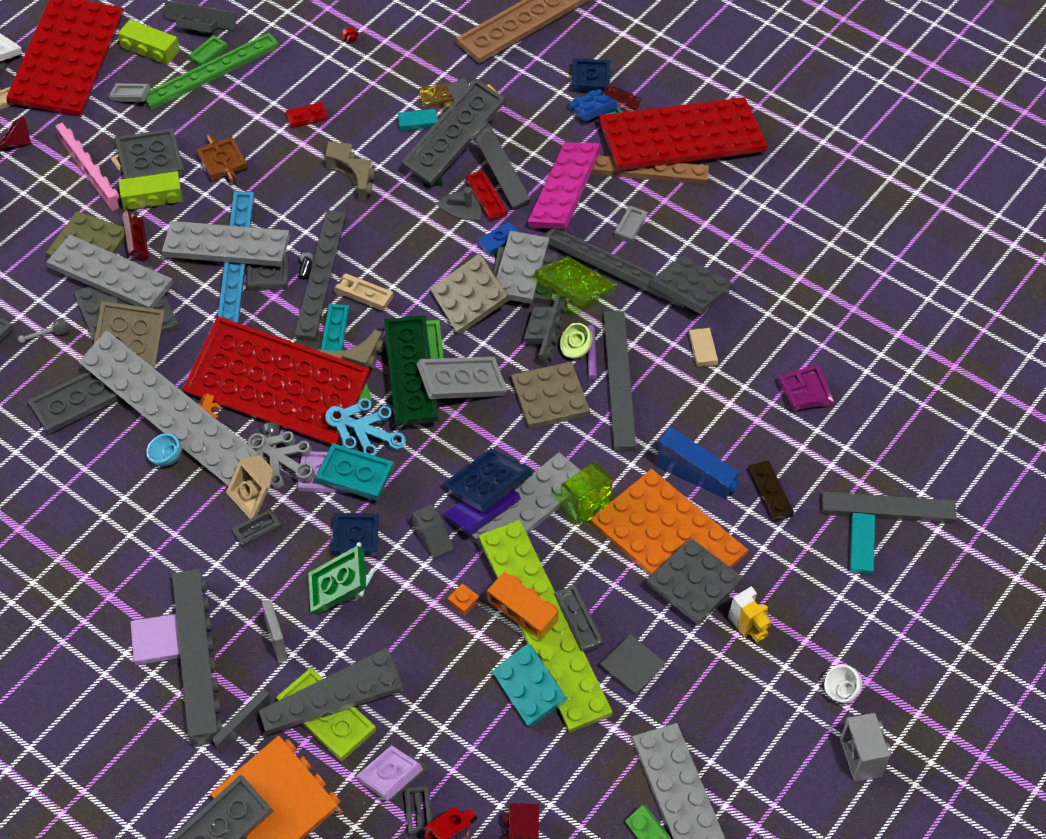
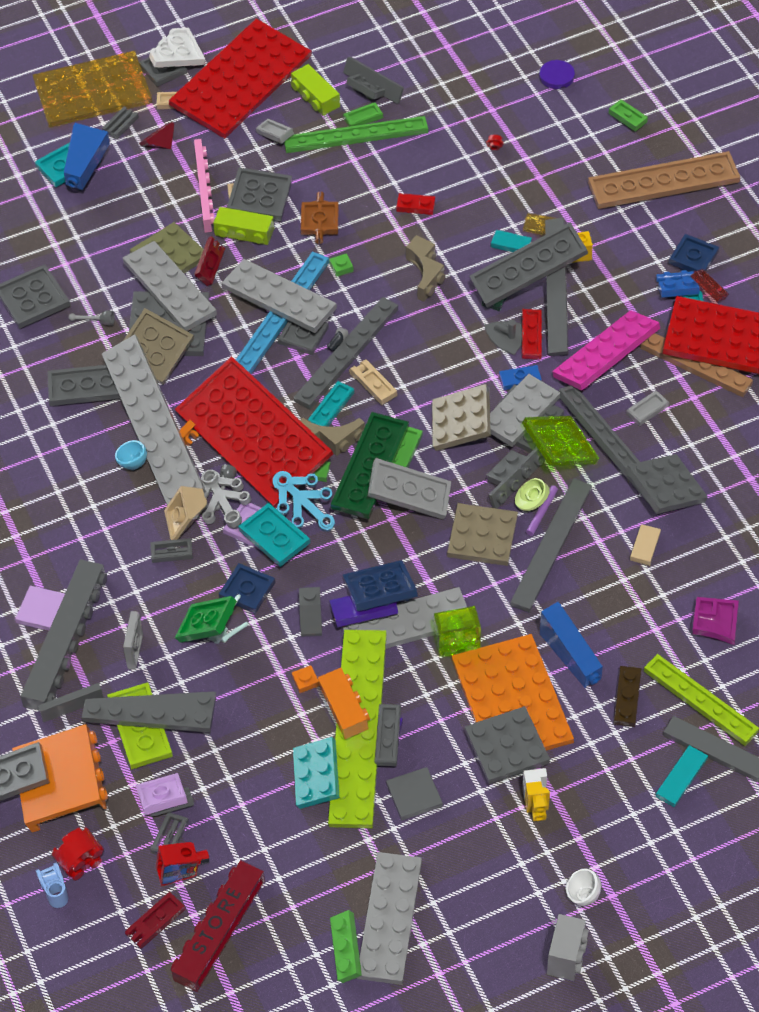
camera: 30 degrees right, 0 degrees up
(267, 195) = (341, 265): none -> bright green plate
(838, 466) = (701, 700): none -> lime plate

